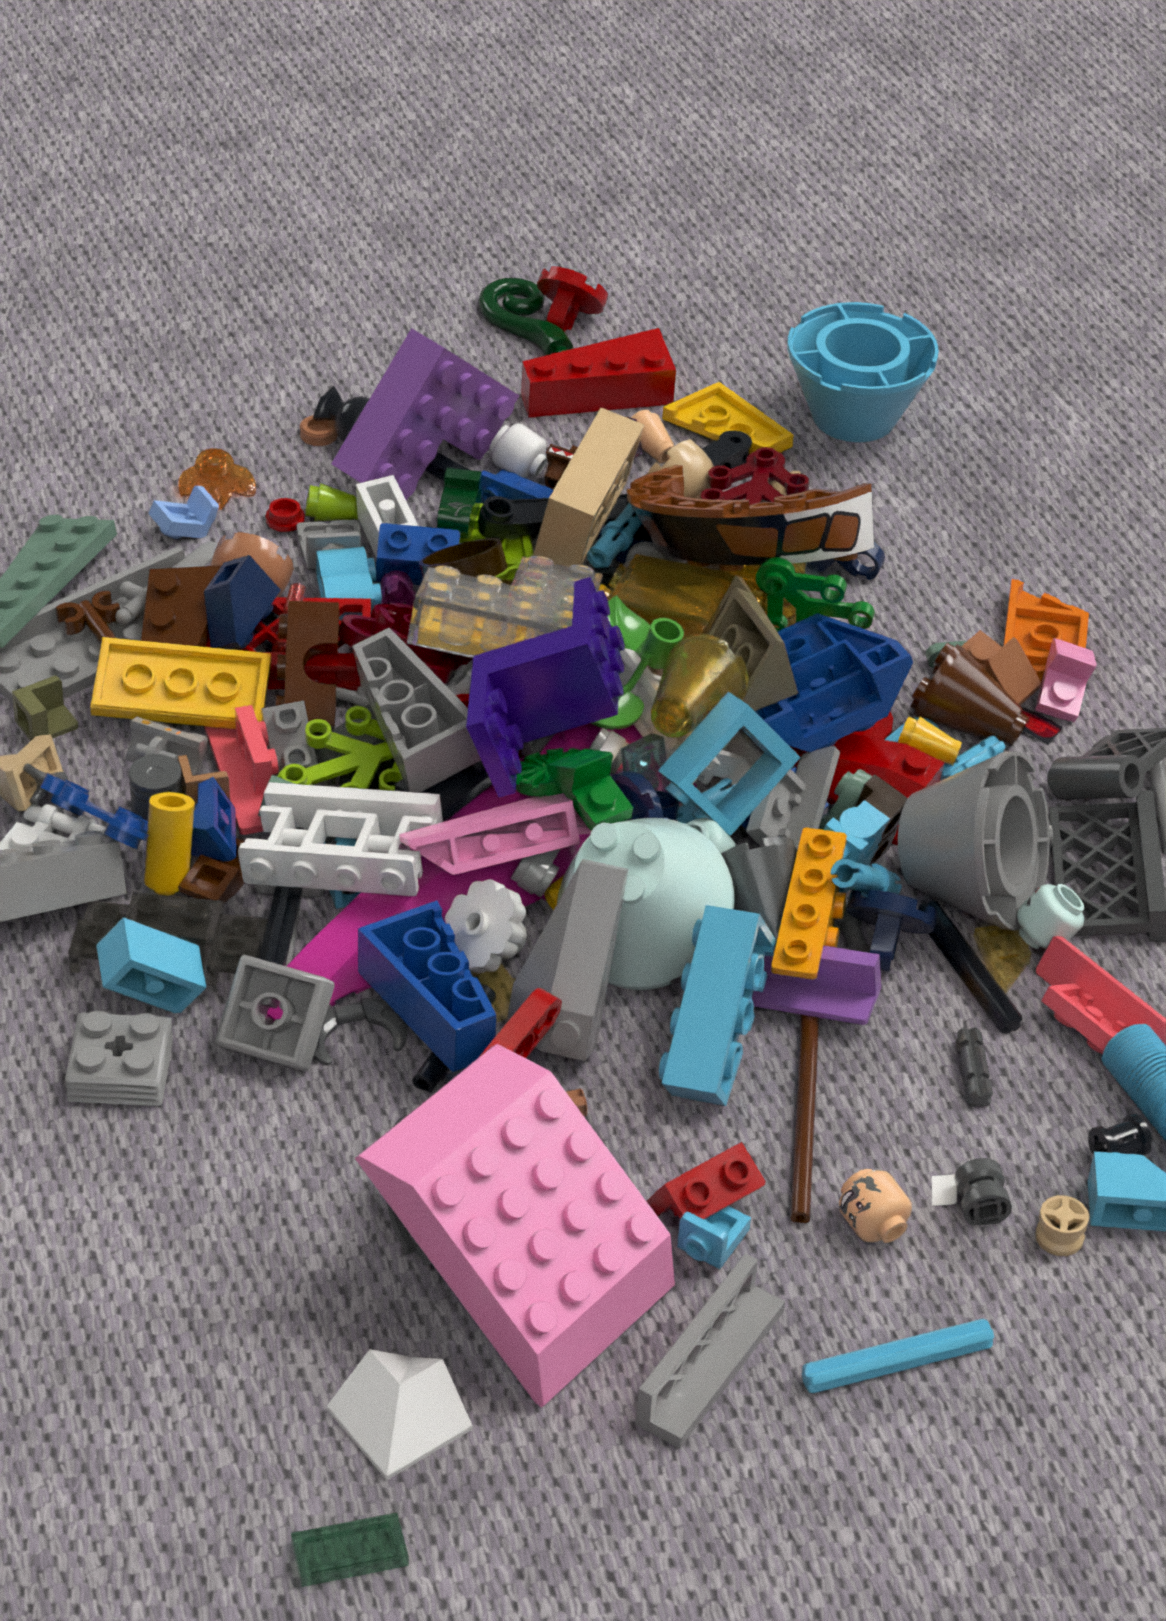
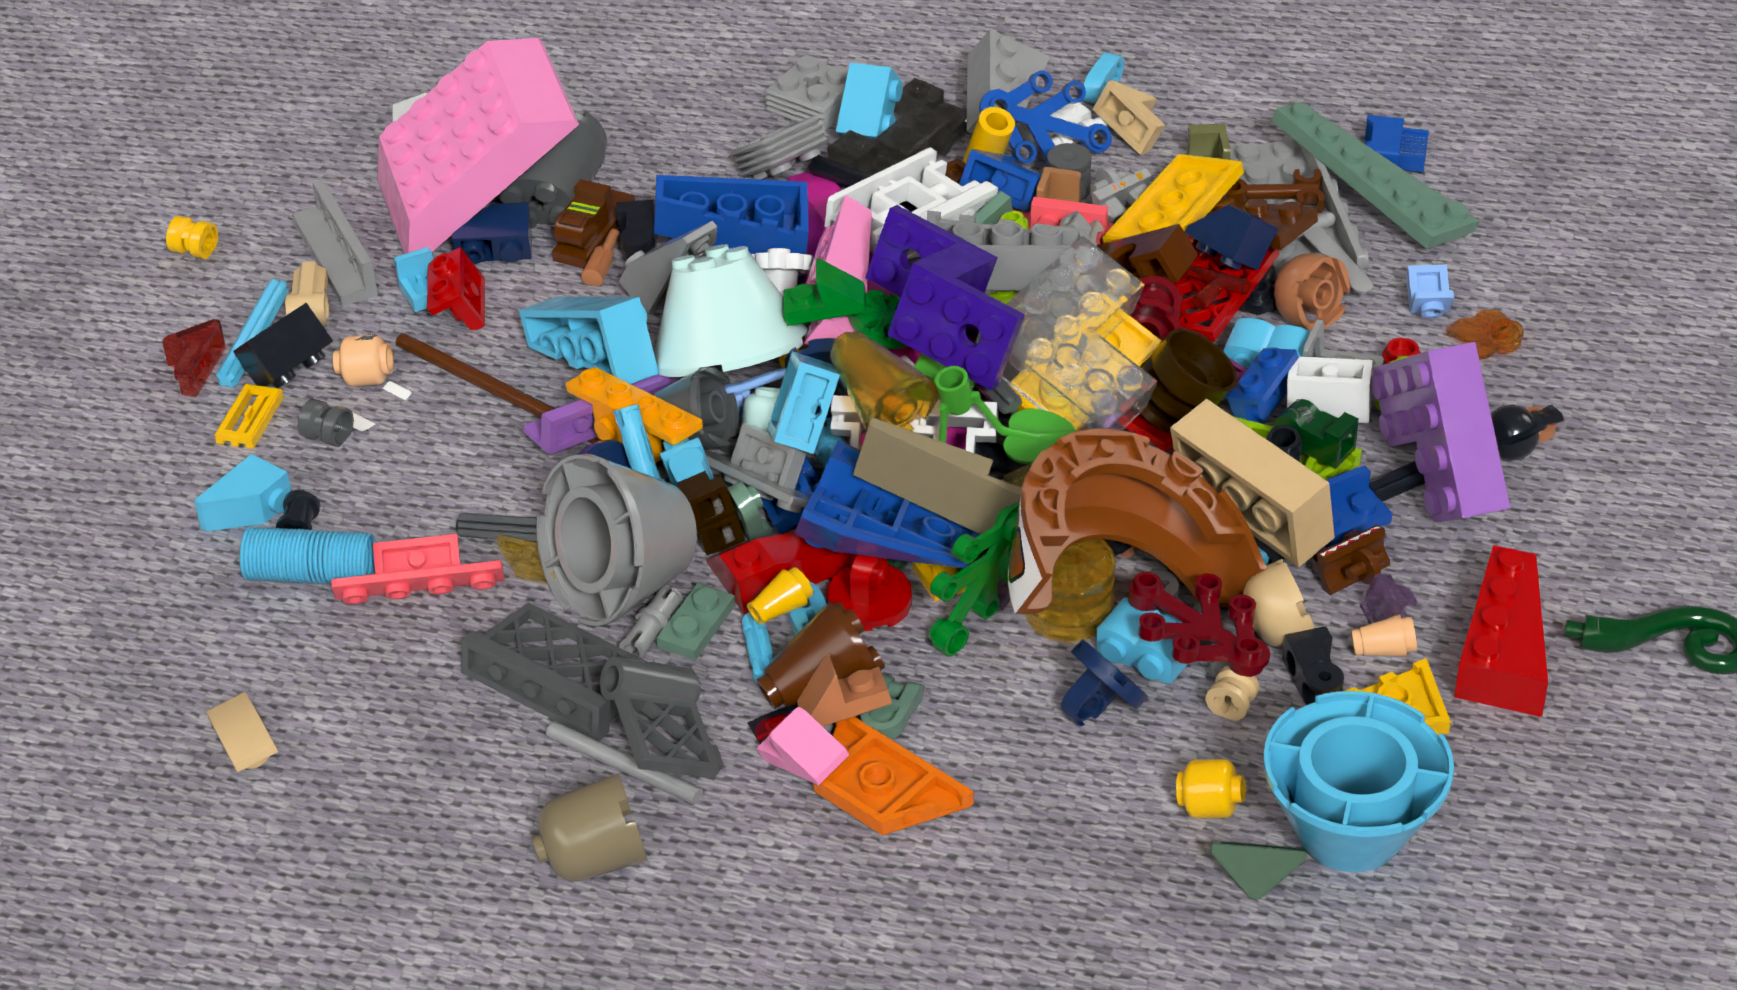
camera: 125 degrees right, 0 degrees up
(39, 777) = (1110, 119): dark grey bar -> none
(349, 1549) = (359, 76): clear green tile -> none
(519, 450) = (1409, 526): white head -> none
(529, 1023) = (634, 214): red beam -> none
(570, 295) = (1670, 657): red tile -> none
(800, 1501) = (191, 237): none -> yellow wheel
(819, 1321) = (310, 286): none -> tan piece
(892, 471) = (1210, 788): none -> yellow head
(919, 1281) = (283, 346): none -> black brick
(924, 439) = (1257, 866): none -> dark green slope
(974, 1067) = (441, 483): dark grey axle -> none
(983, 1367) = (194, 354): none -> clear red slope
(1019, 1288) = (265, 404): none -> yellow tile
(1050, 913) = (524, 574): light aqua head -> none
(1072, 1221) = (263, 443): tan wheel -> none

